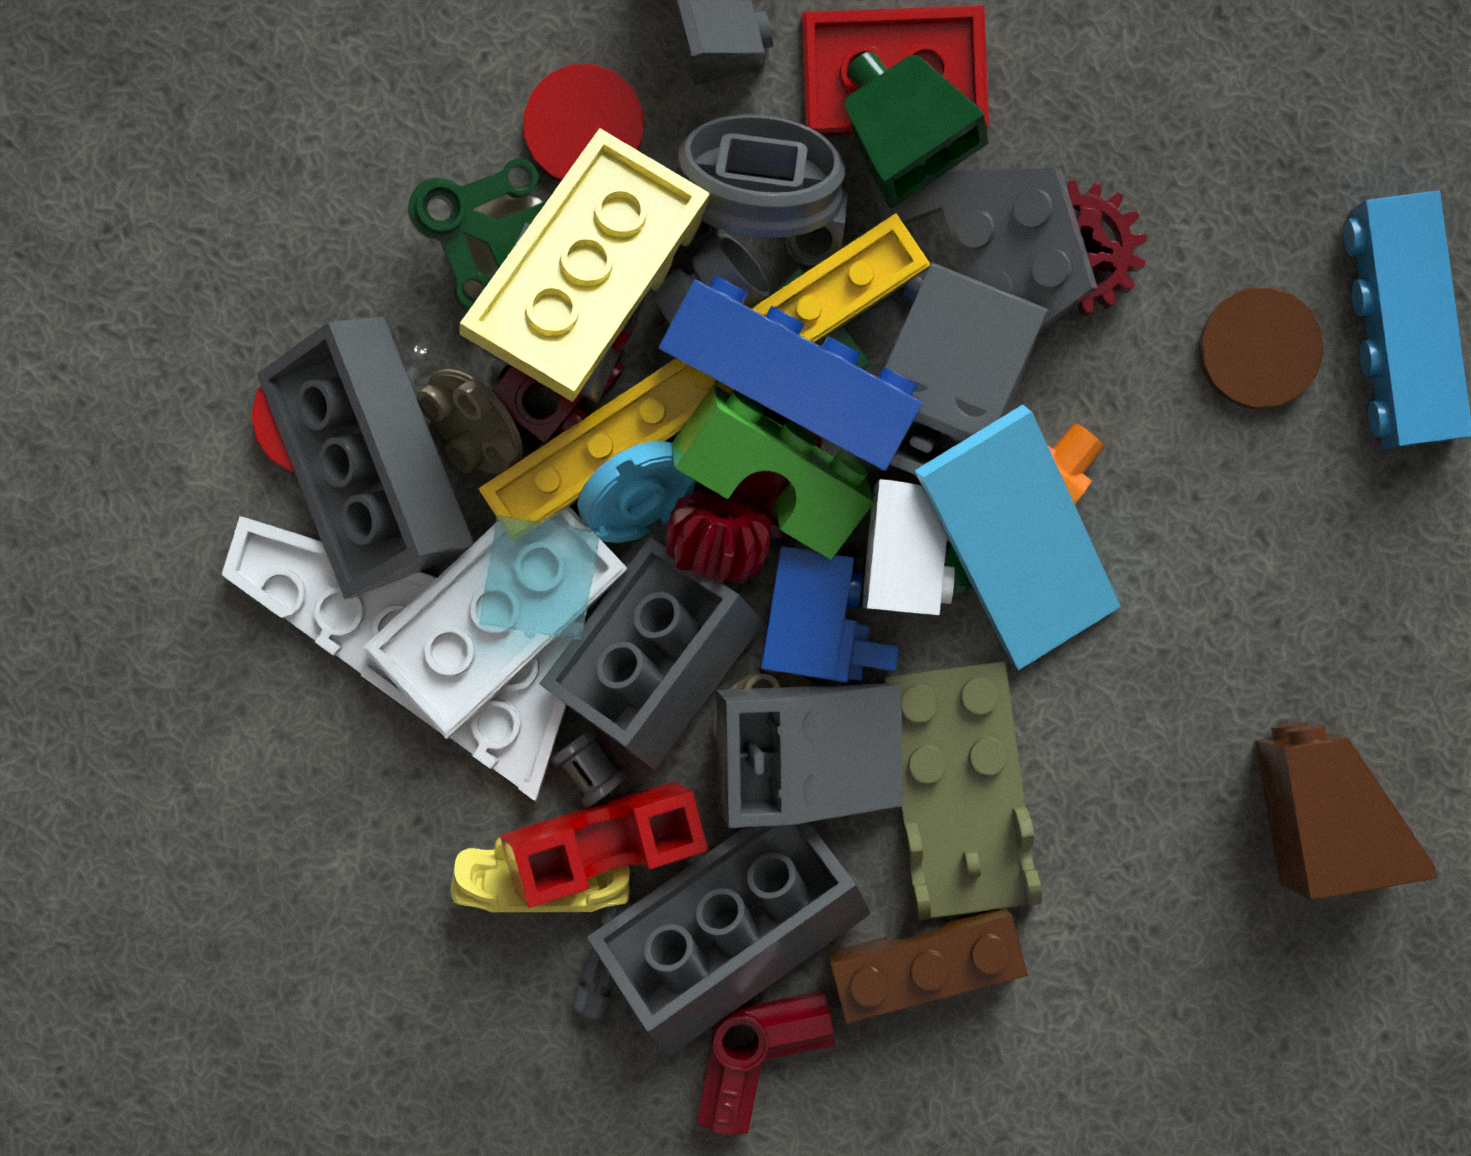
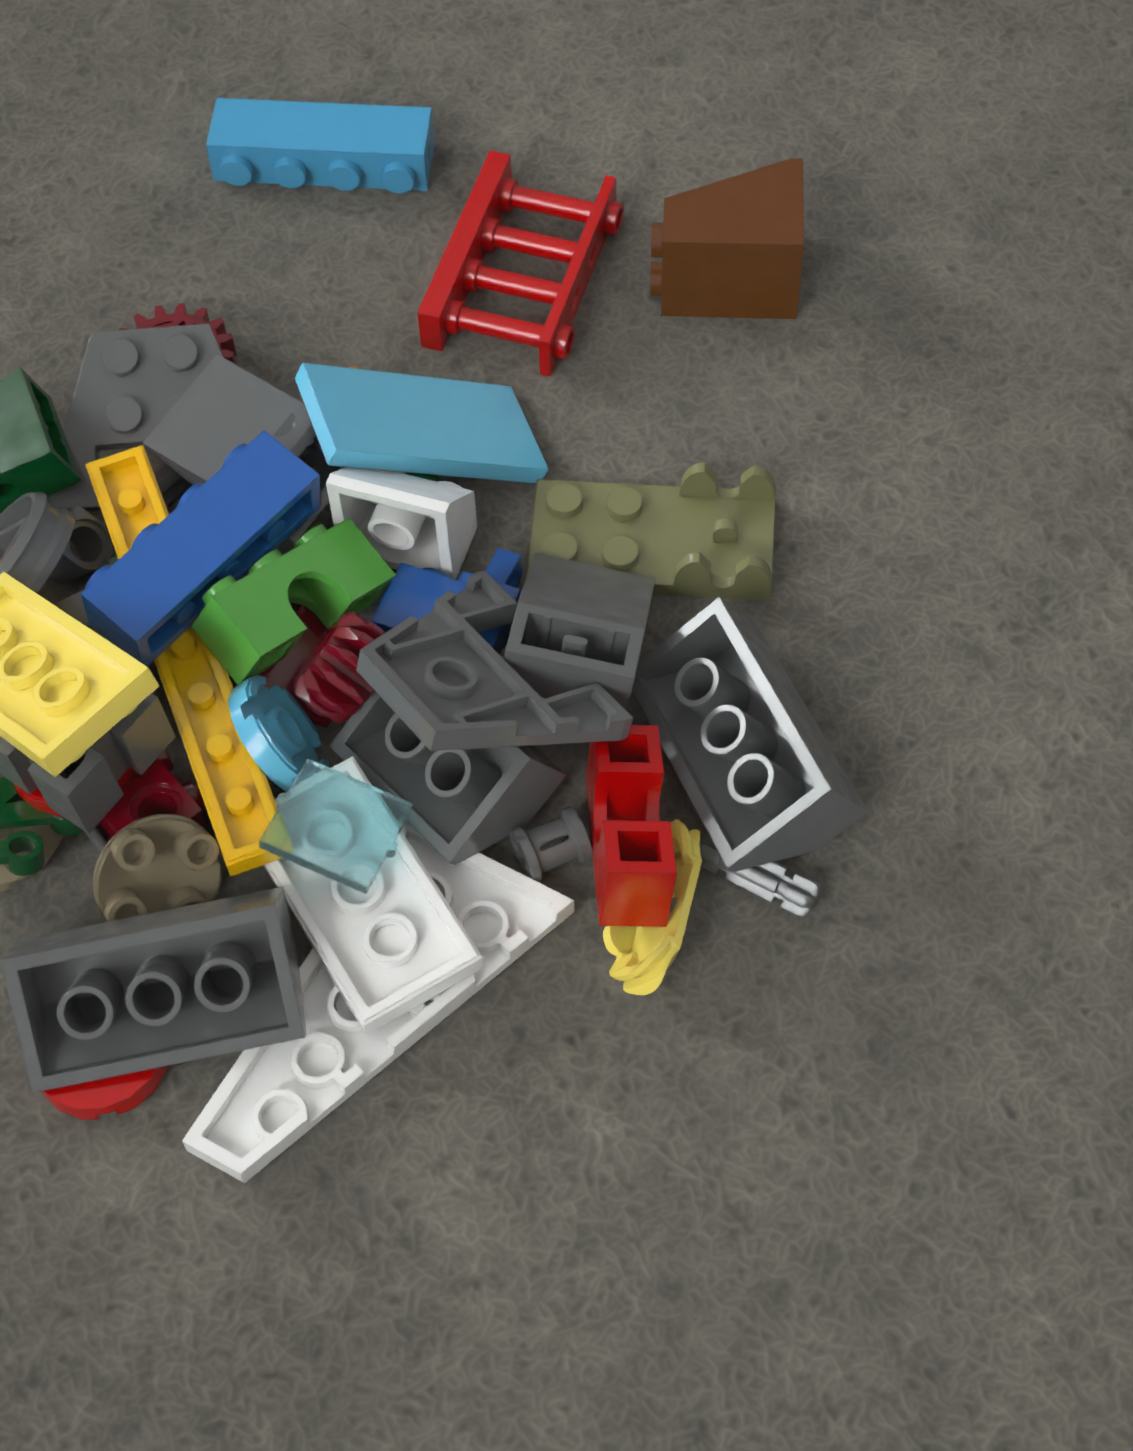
camera: 75 degrees left, 30 degrees down
(678, 664) = (465, 694): none -> dark grey wing
(733, 1074) = (893, 768): dark red piece -> none
(928, 967) = (818, 583): reddish brown arch -> none
(1261, 348) = (310, 254): reddish brown tile -> none
(1318, 533) = (481, 230): none -> red fence

